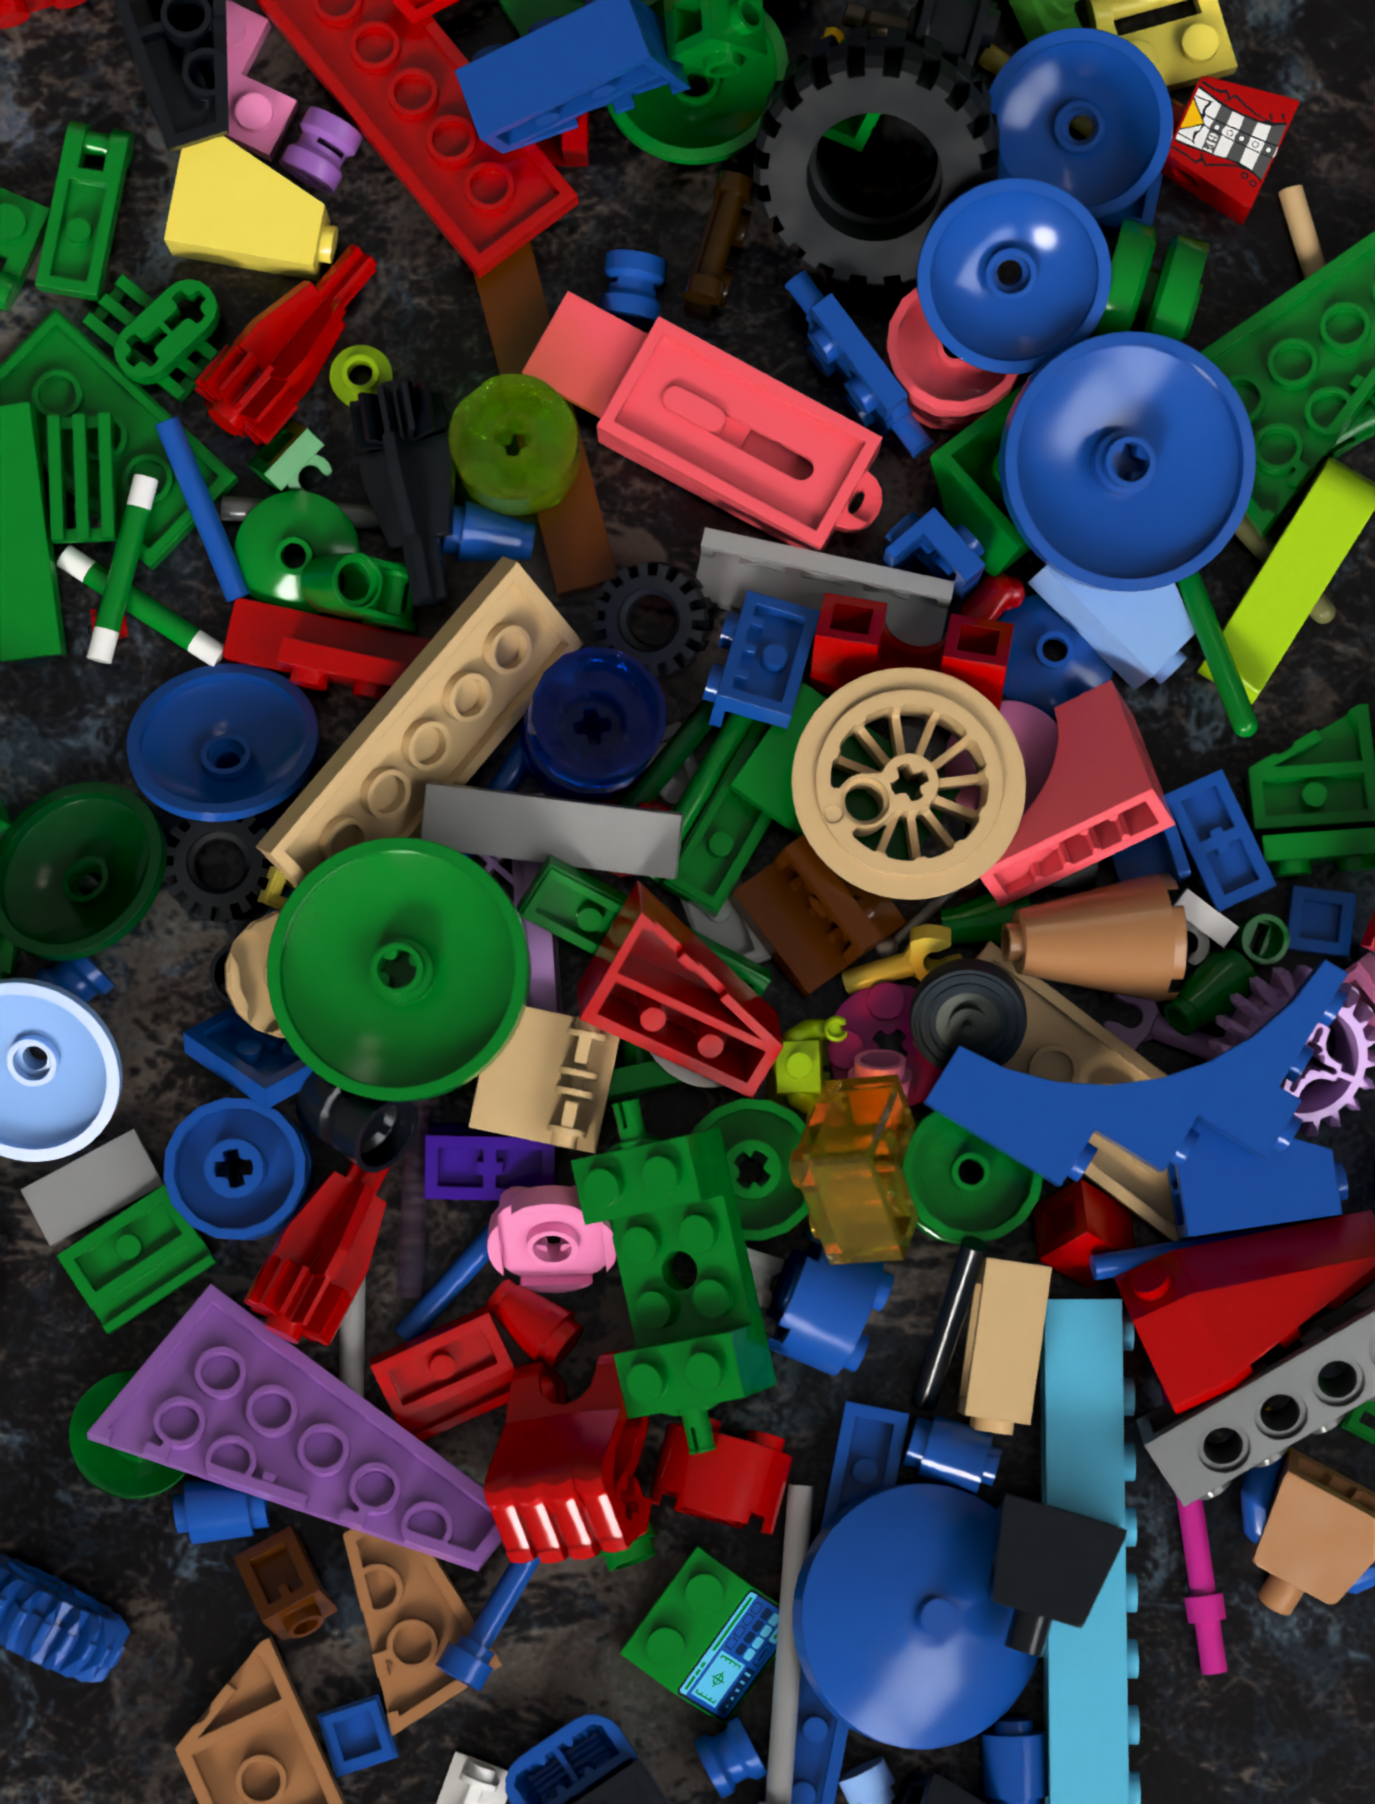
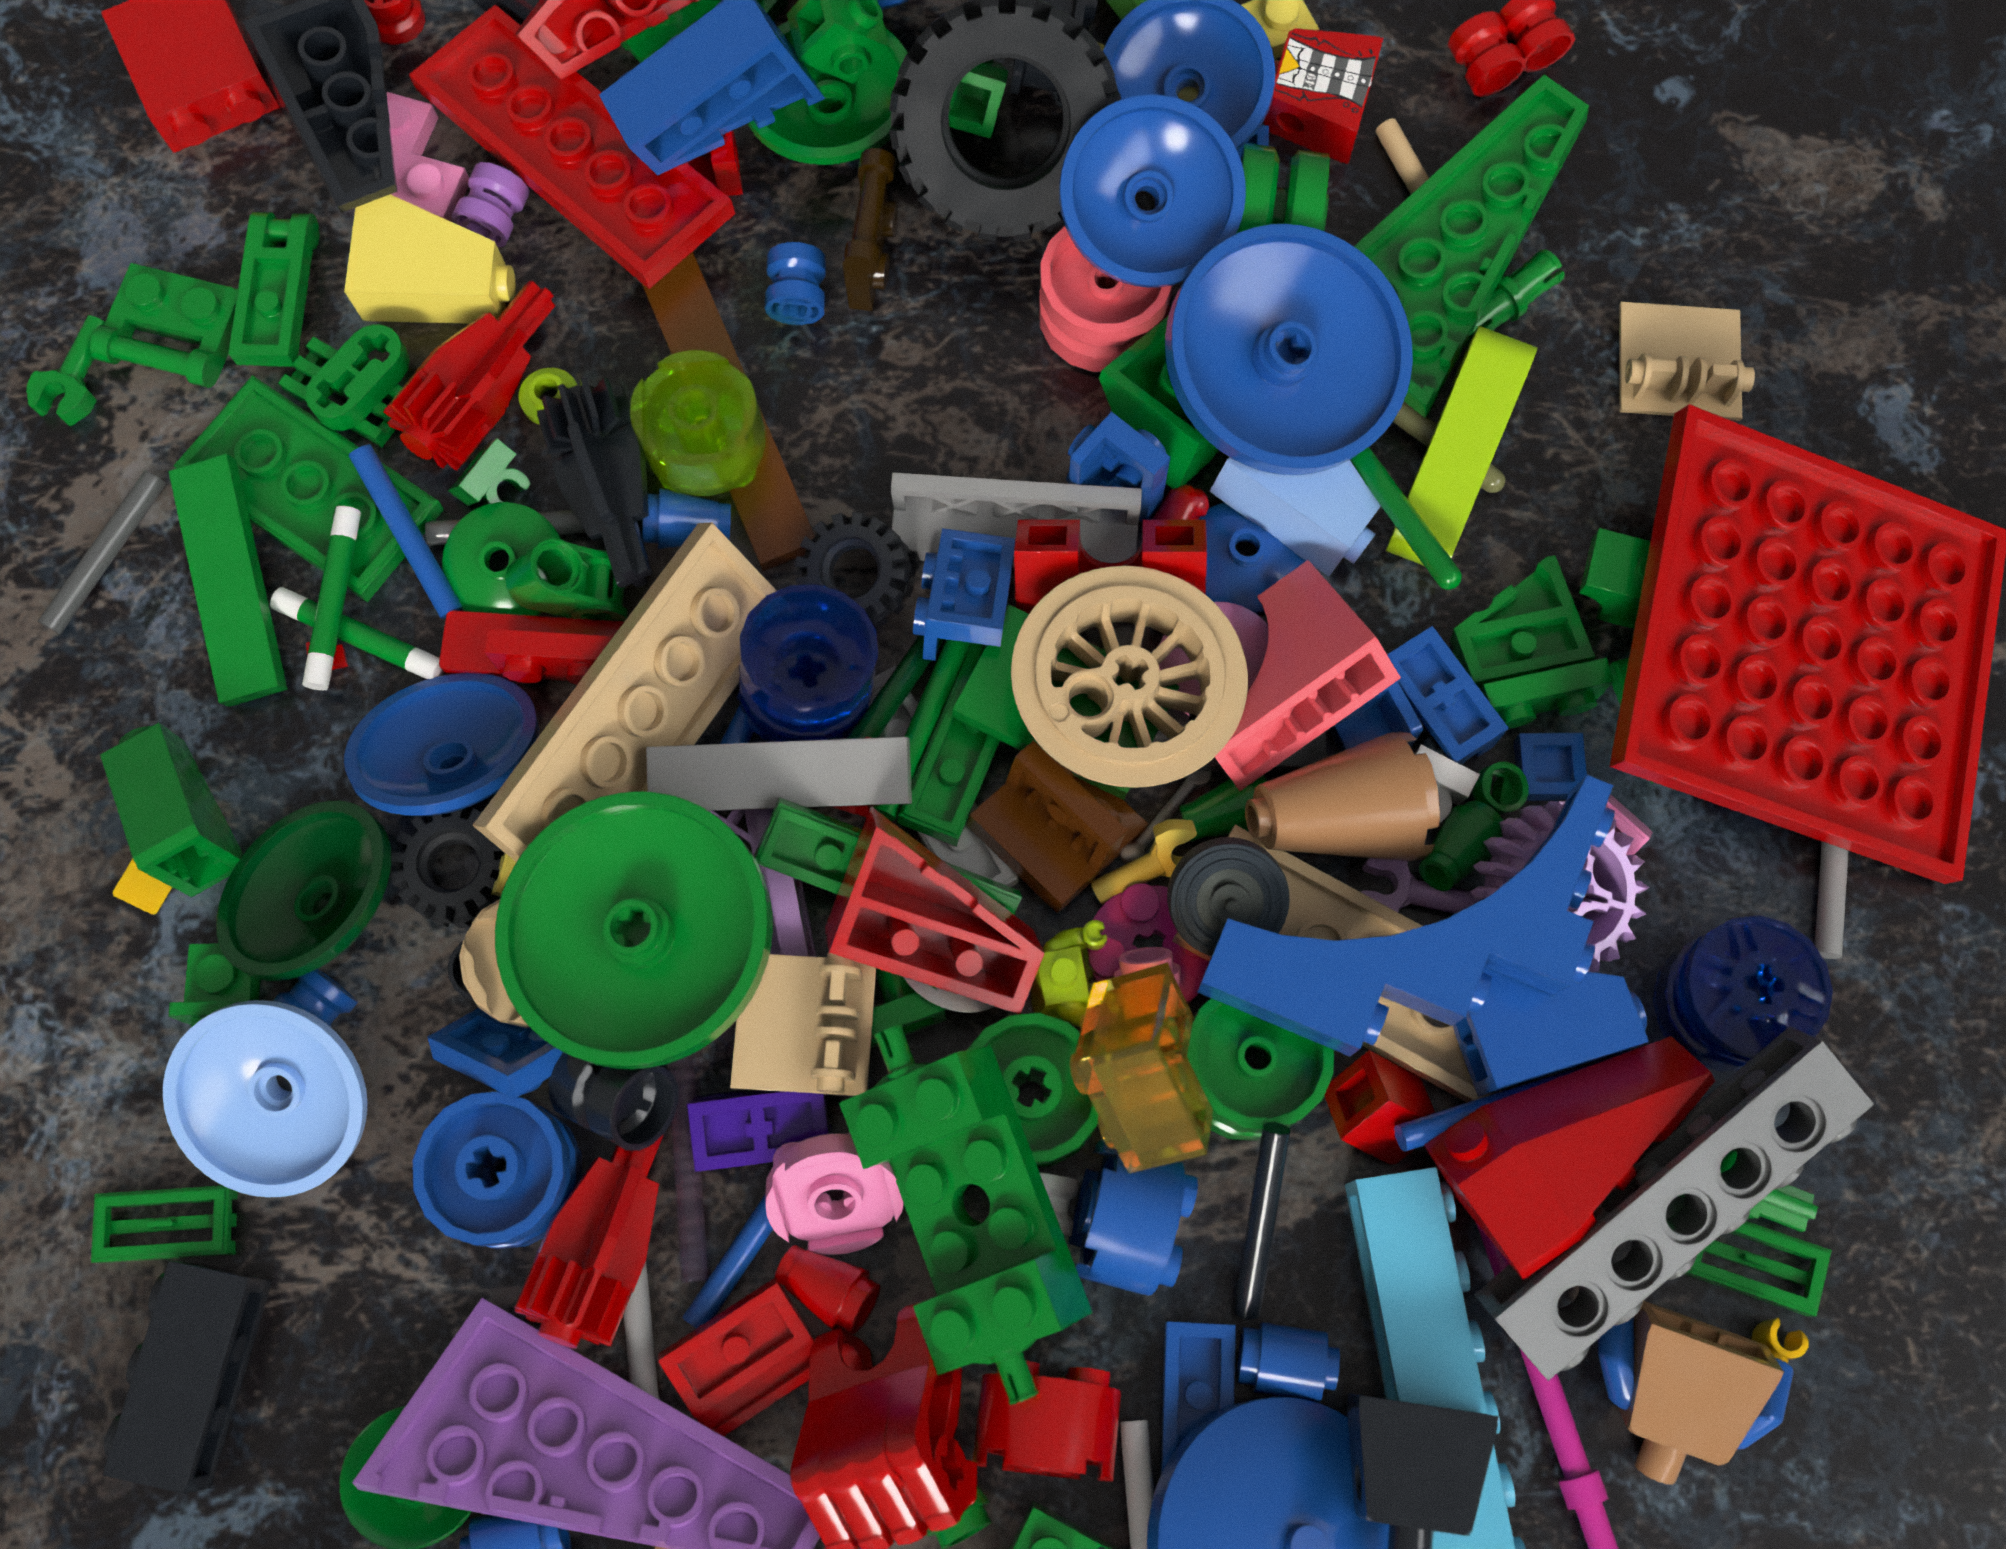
camera: 10 degrees left, 10 degrees down
(79, 425) = (278, 474): green tile -> none
(93, 1187) = (350, 1215): light grey tile -> none
(136, 1259) = (400, 1286): green plate -> none
(713, 424) = (891, 385): coral piece -> none
(843, 350) = (1016, 314): blue plate -> none
(1003, 1345) = (1324, 1234): tan window -> none

